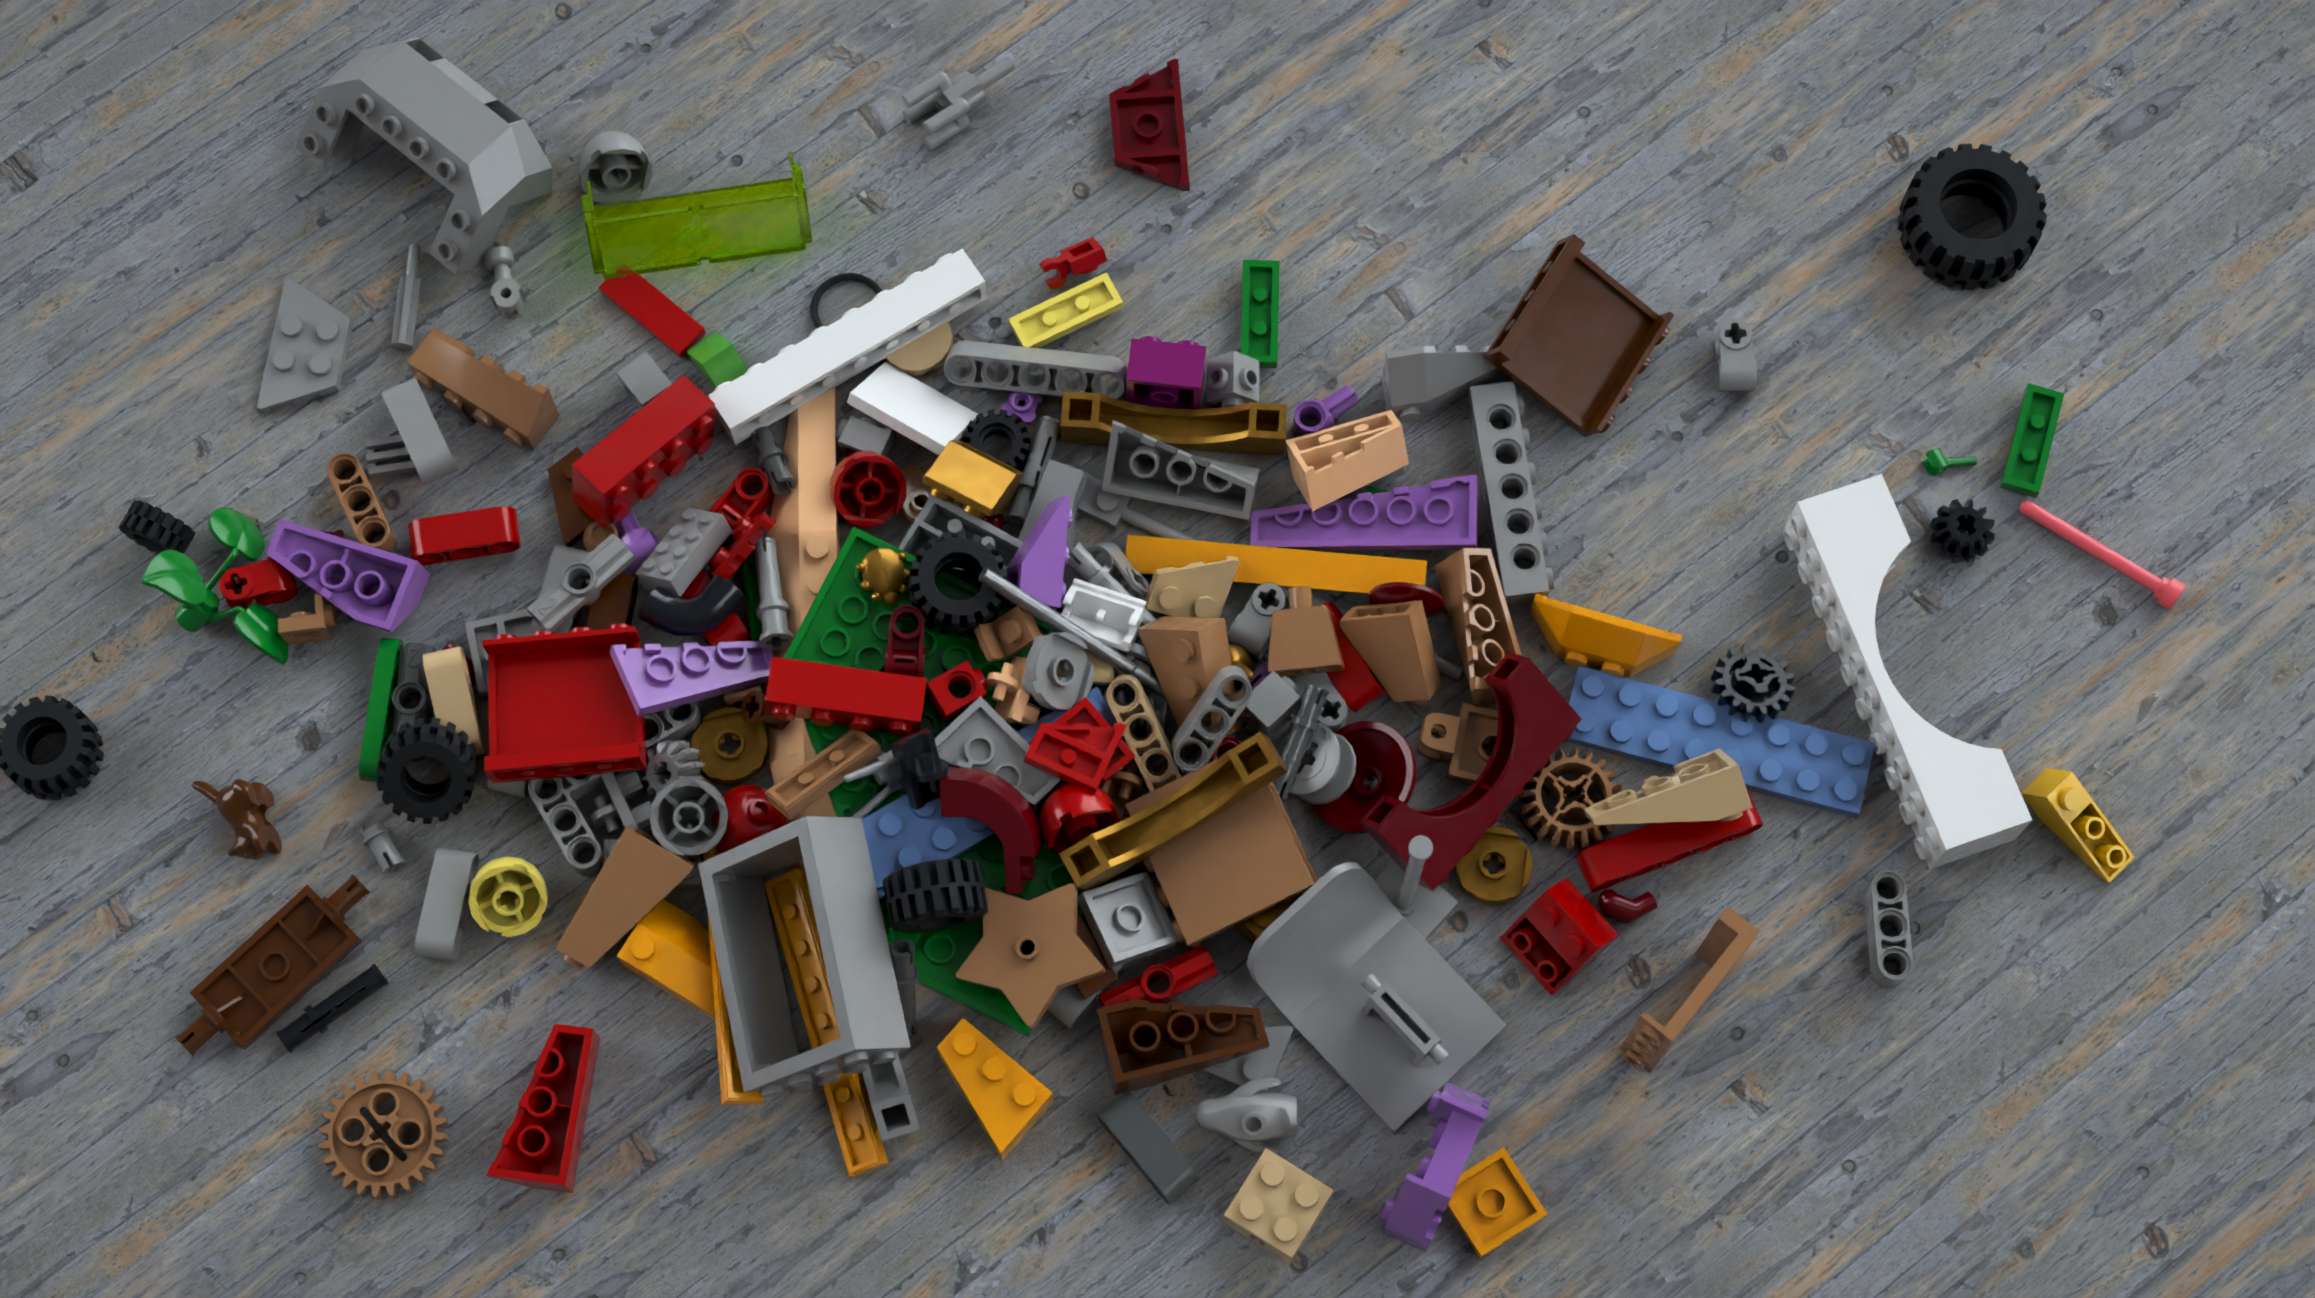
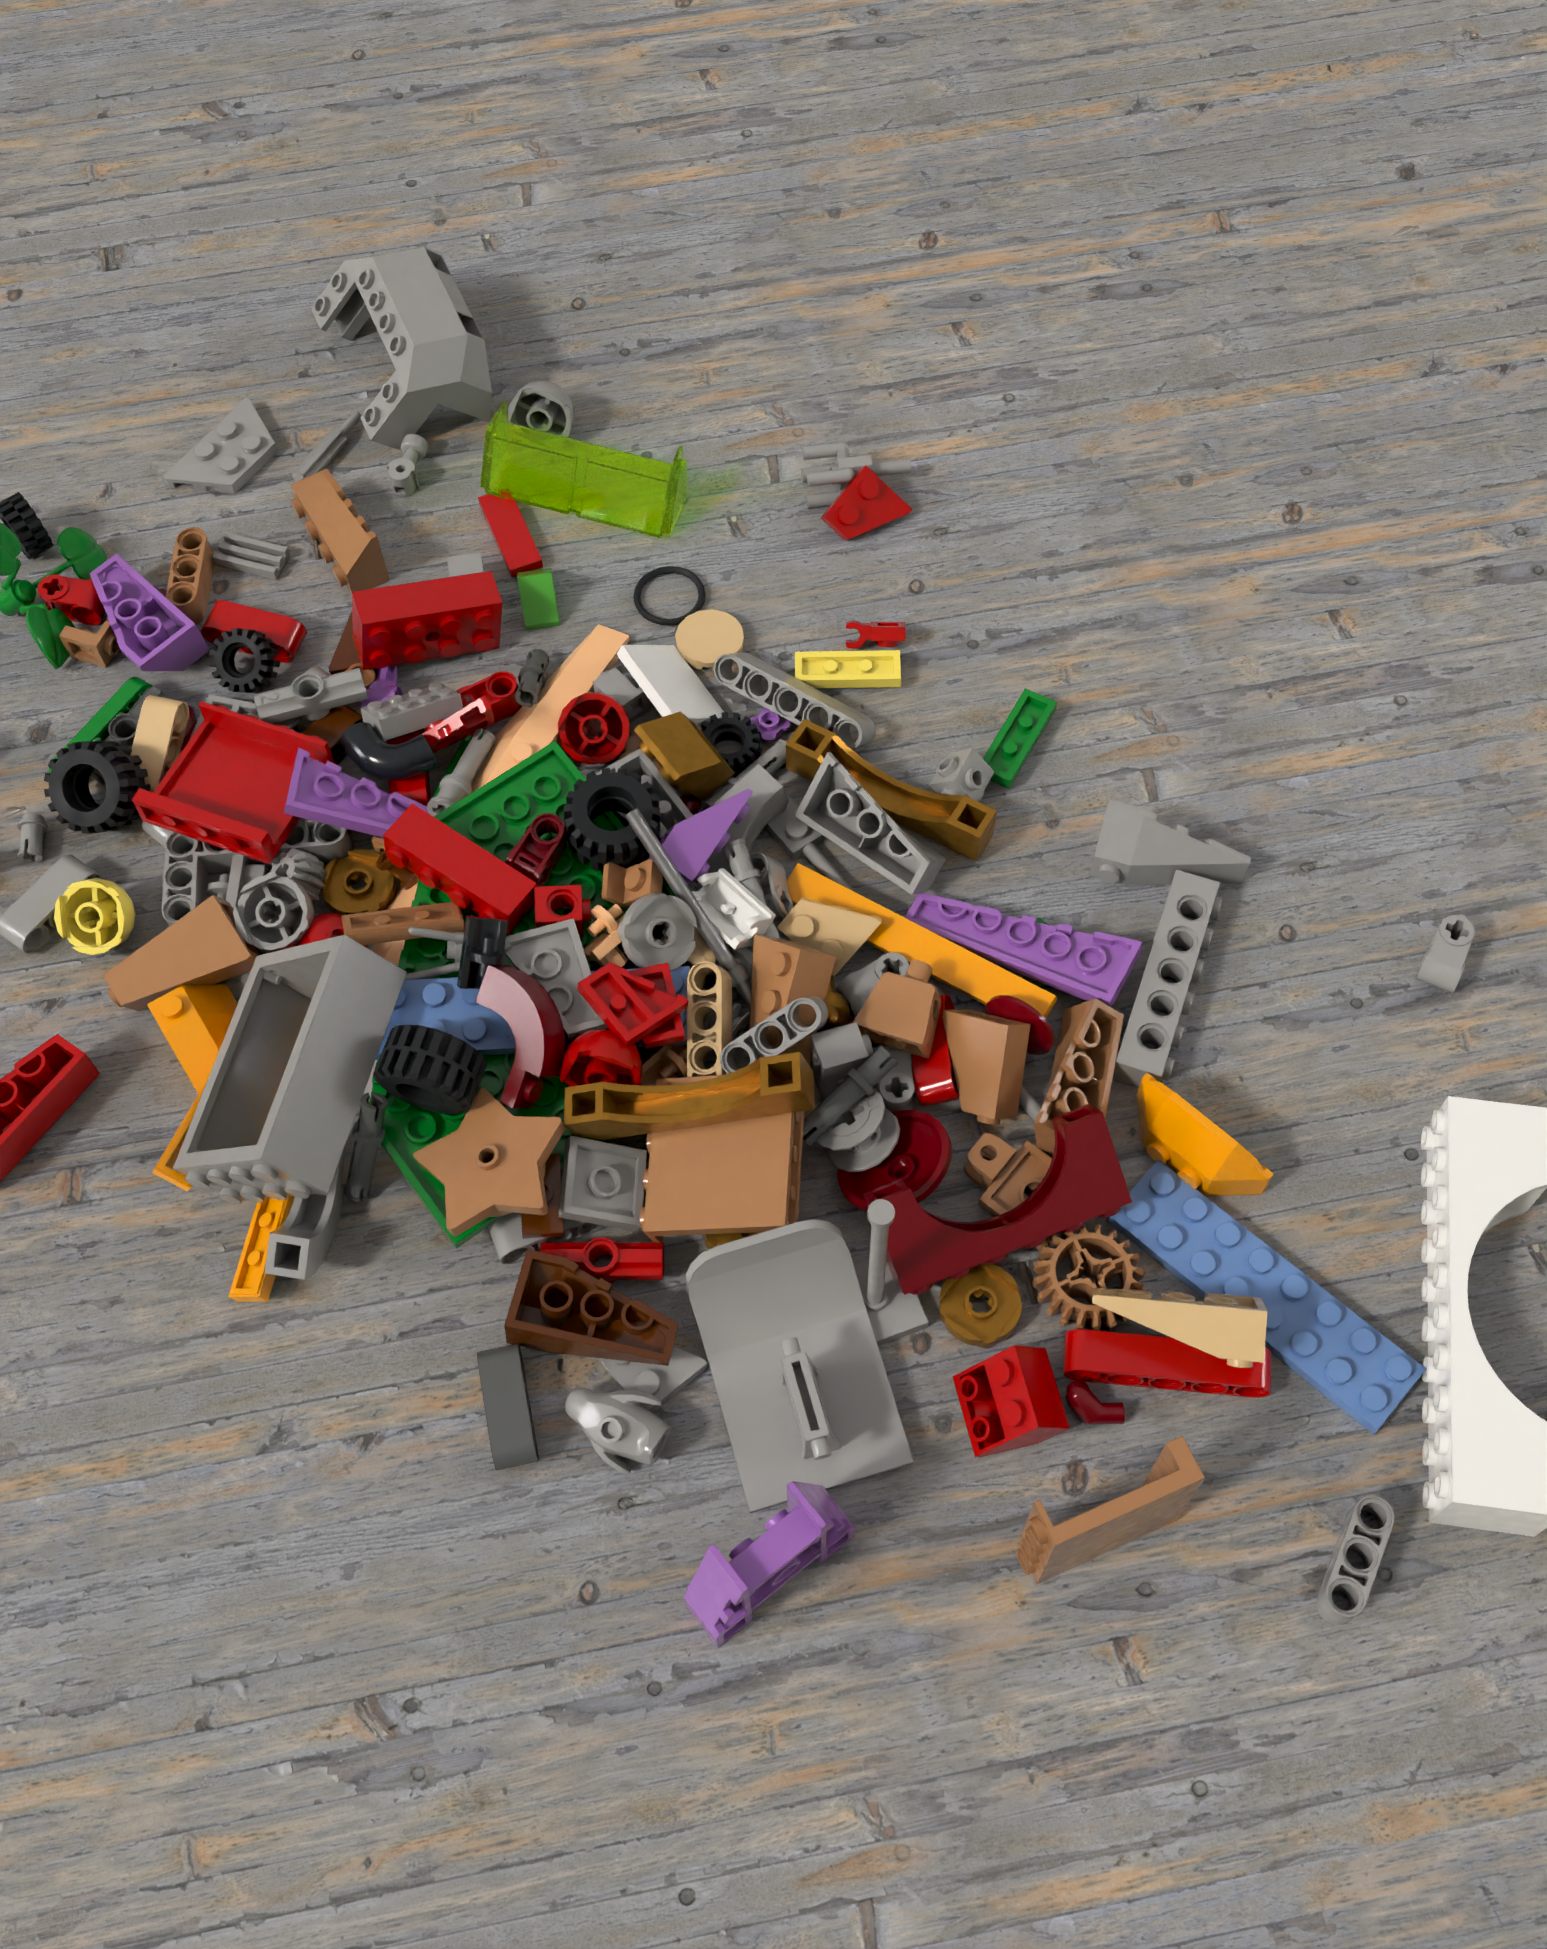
camera: 30 degrees right, 10 degrees down
(419, 431) = (267, 538): light grey beam -> none
(481, 595) = (225, 665): none -> black tyre
(848, 345) = (647, 616): white brick -> none
(884, 574) = (553, 786): pearl gold piece -> none
(990, 129) = (864, 506): none -> red wing
(994, 1085) = (399, 1281): light orange wedge -> none
(1150, 128) = (1002, 559): dark red wing -> none
(1166, 373) = (903, 743): magenta brick -> none
(1277, 1206) = (595, 1524): tan brick -> none
(1323, 411) = (1028, 838): medium lavender axle -> none
(1346, 457) = (1031, 881): light nougat wedge -> none
(1494, 1203) = (808, 1632): light orange plate -> none
(1577, 339) = (1299, 873): reddish brown panel -> none
(1752, 683) = (1324, 1253): black gear -> none

